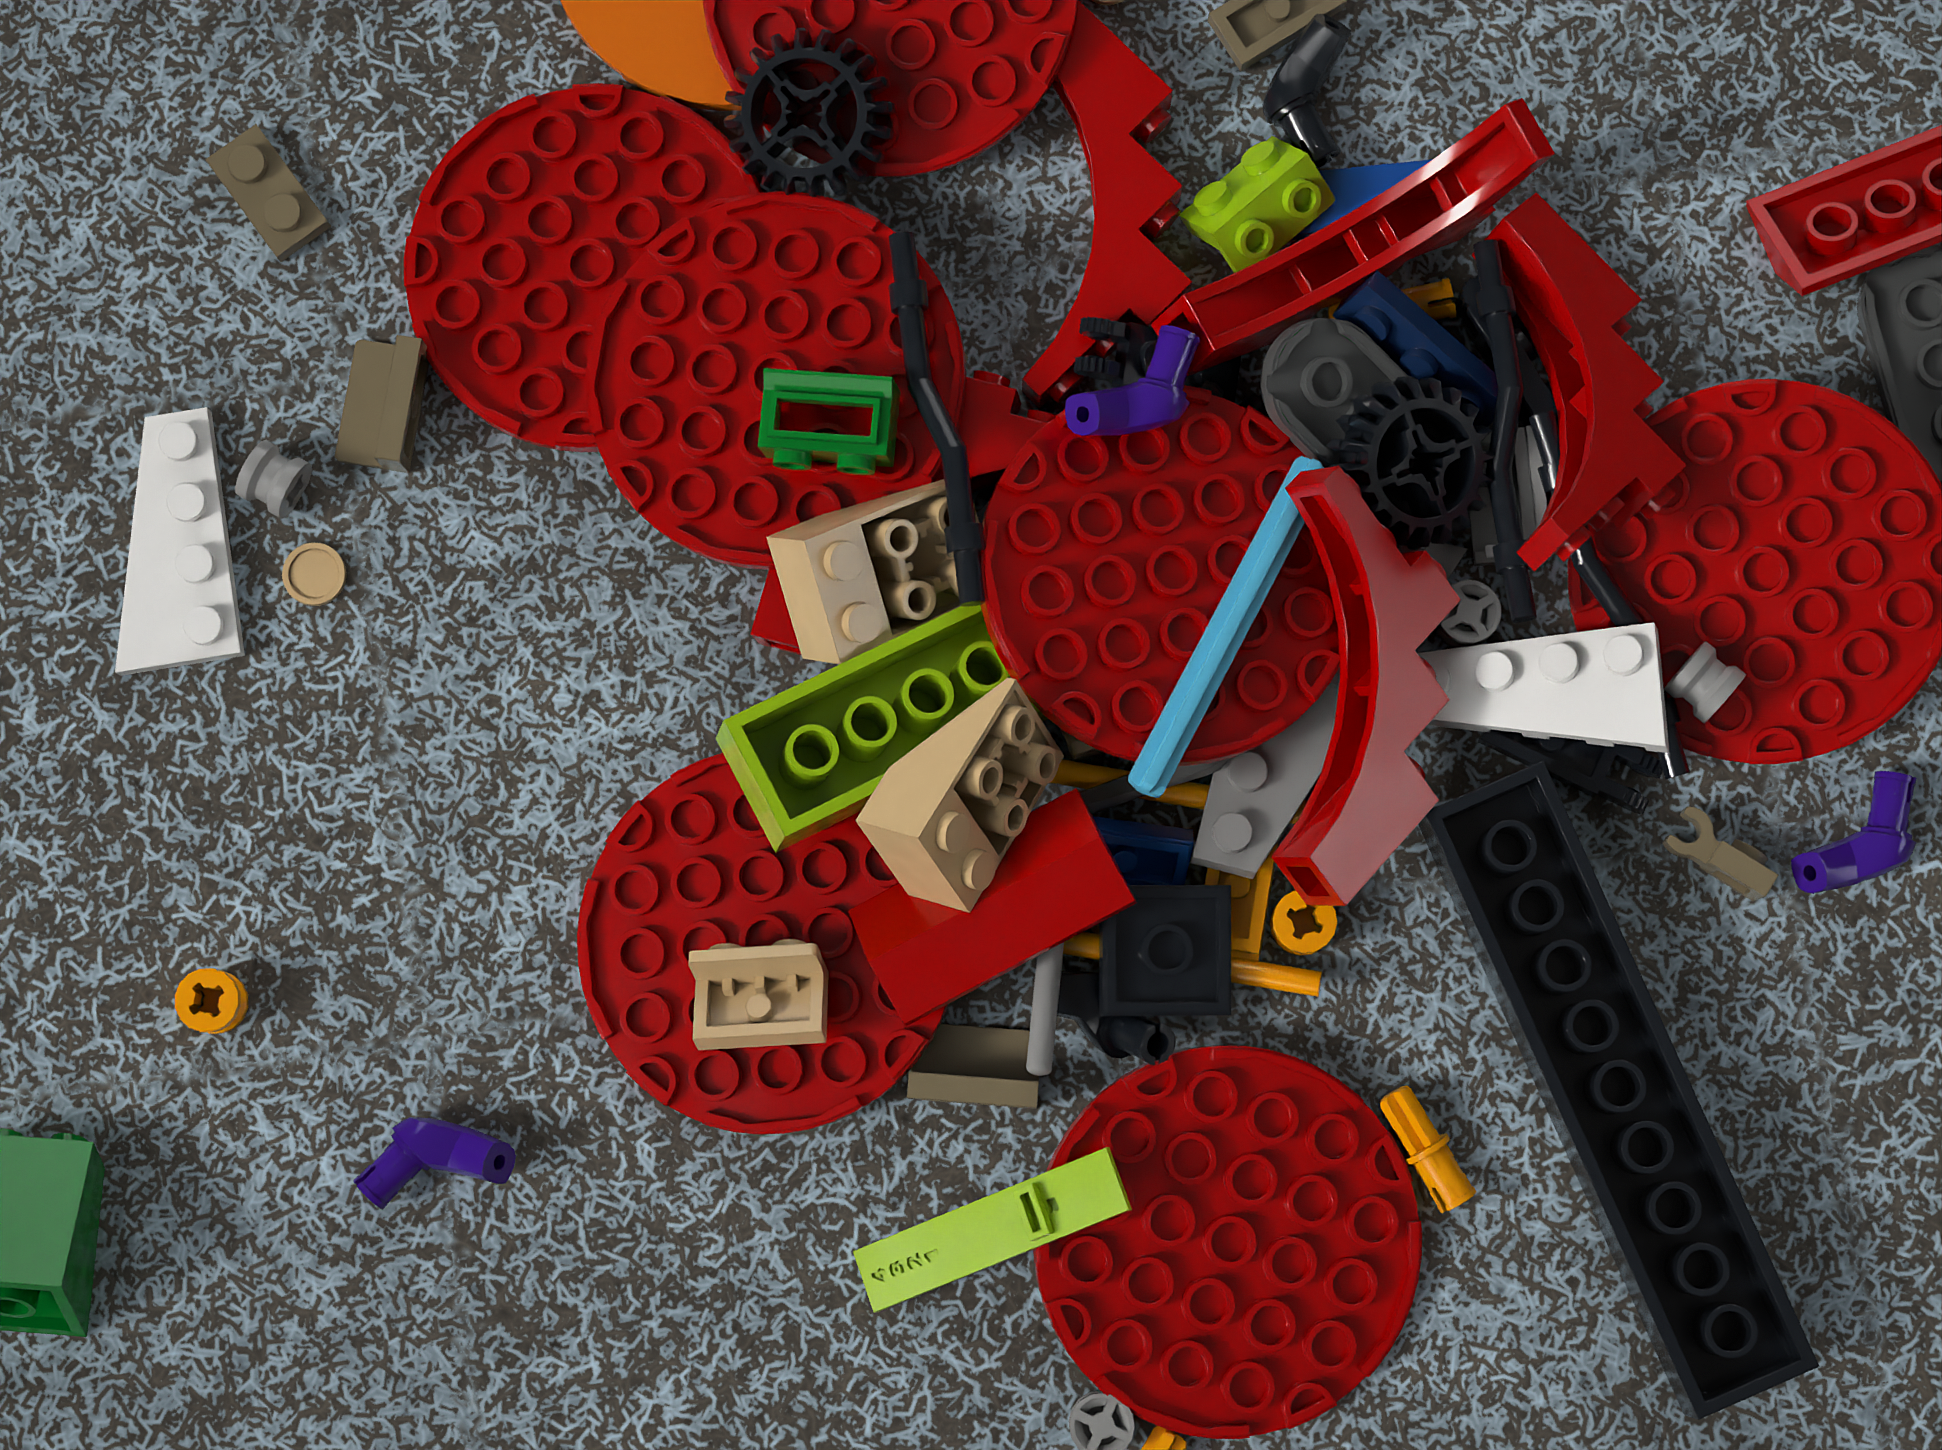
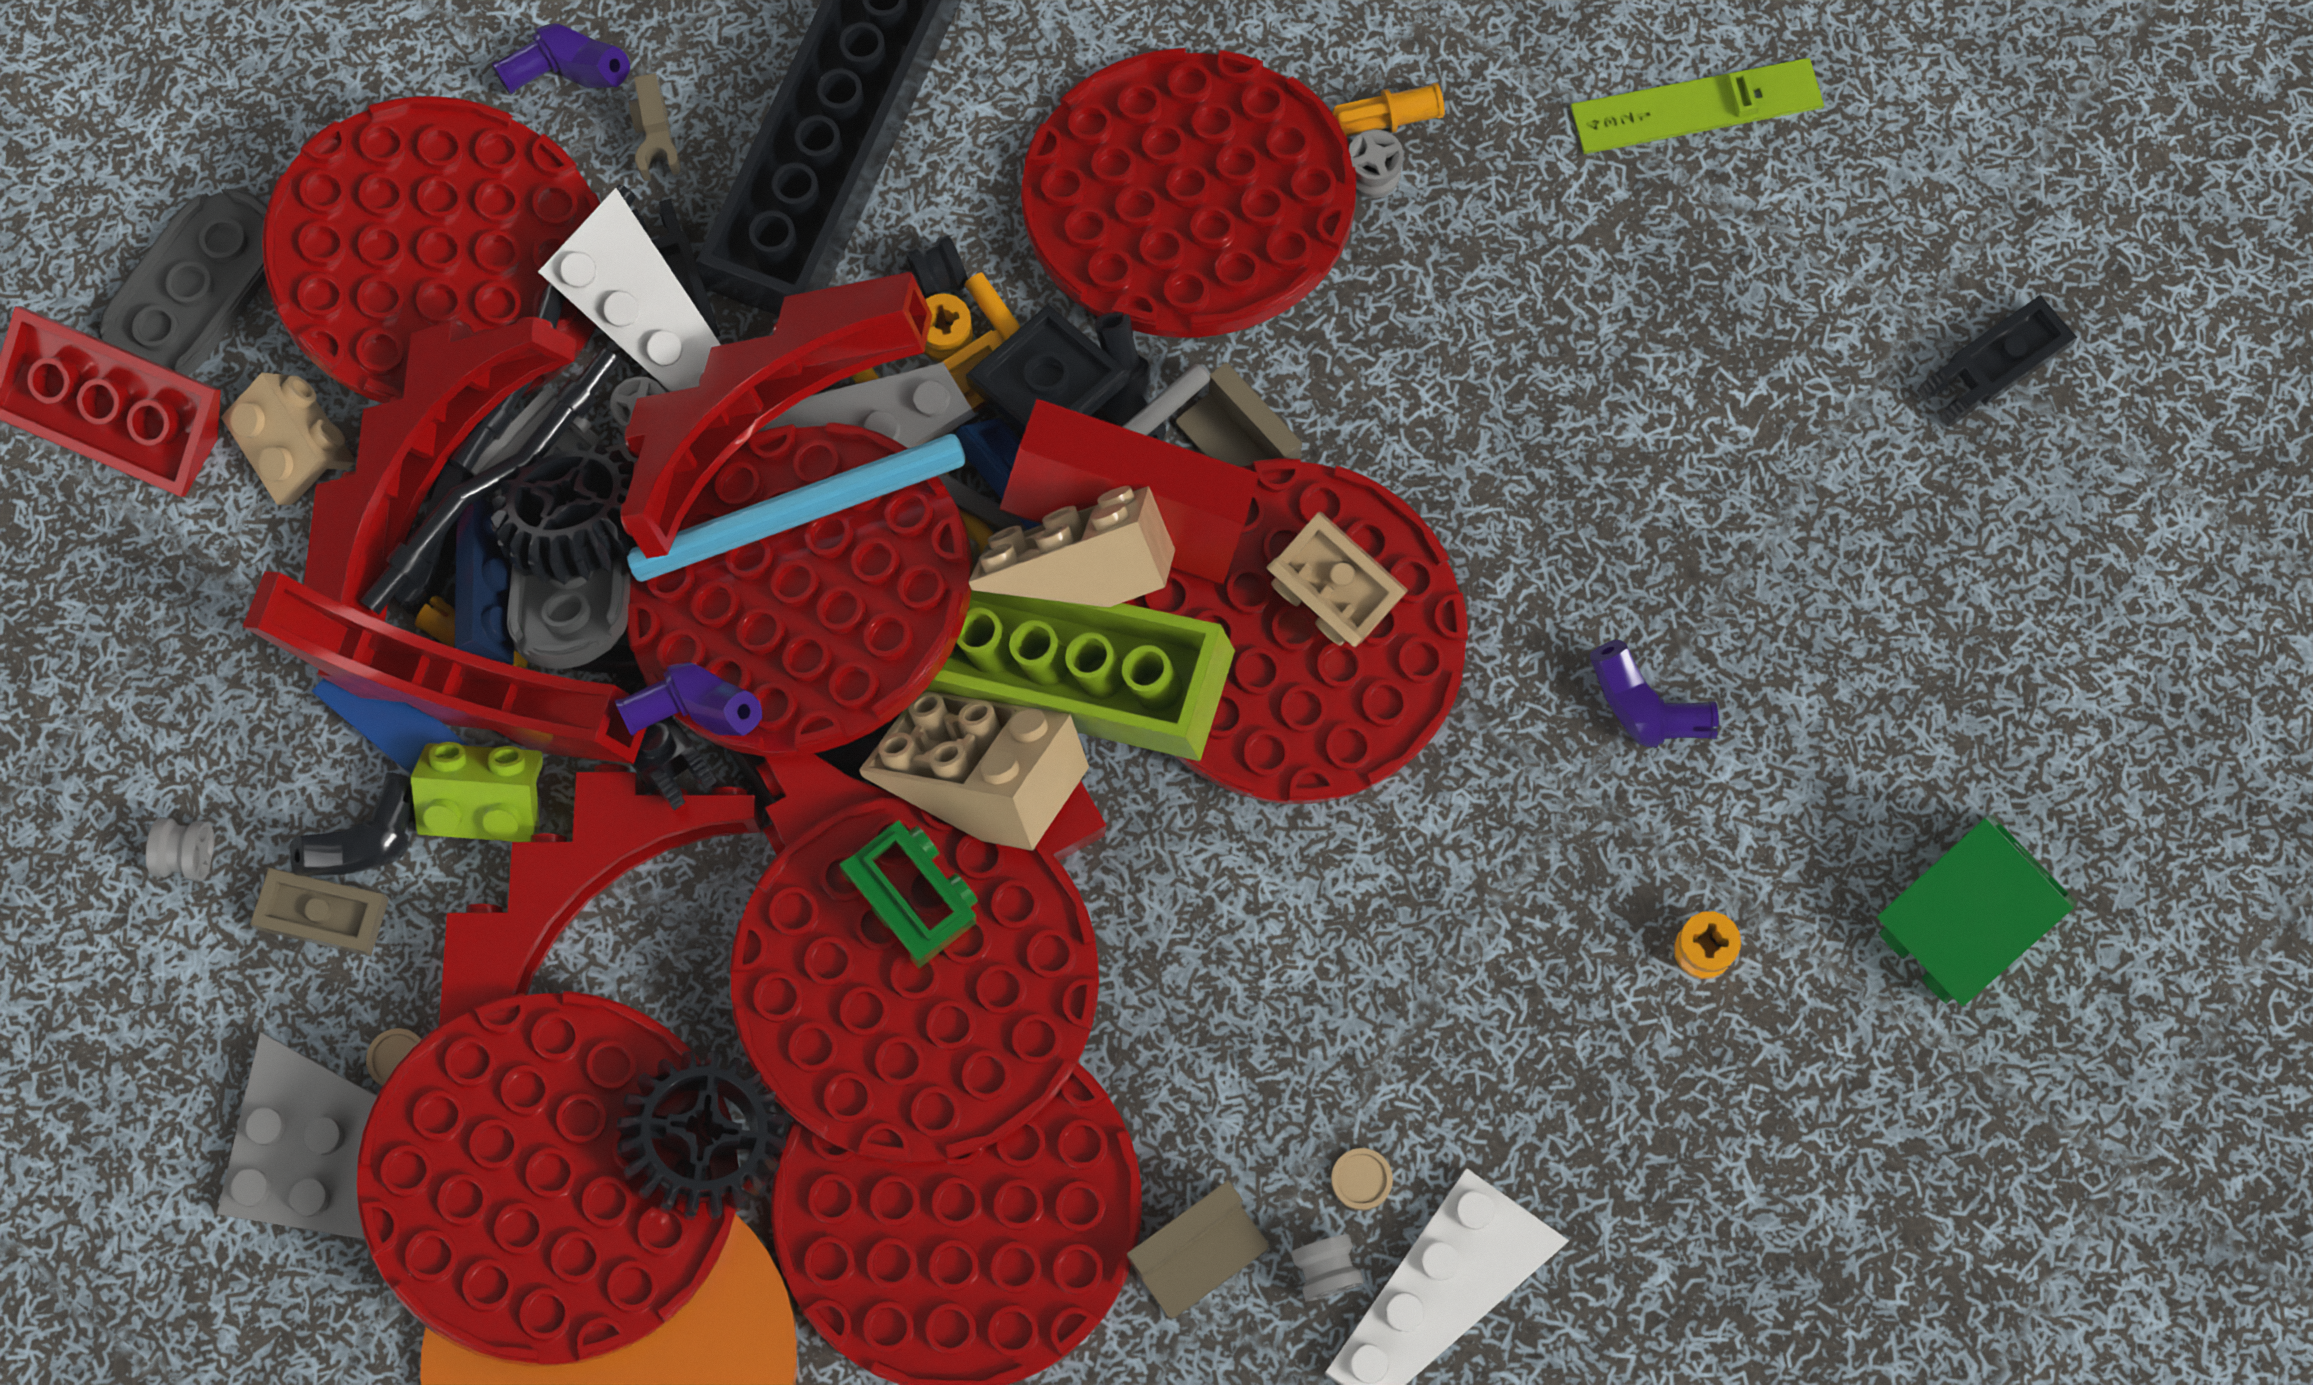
camera: 140 degrees left, 10 degrees down
(964, 536) = (772, 922): black bar -> none
(992, 1229) = (1328, 319): lime piece -> none
(1361, 966) = (937, 267): none -> black wheel
(1427, 1149) = (1012, 133): light orange axle -> none
(1704, 682) = (547, 217): light grey wheel -> none
(1718, 323) = (286, 435): none -> tan bracket

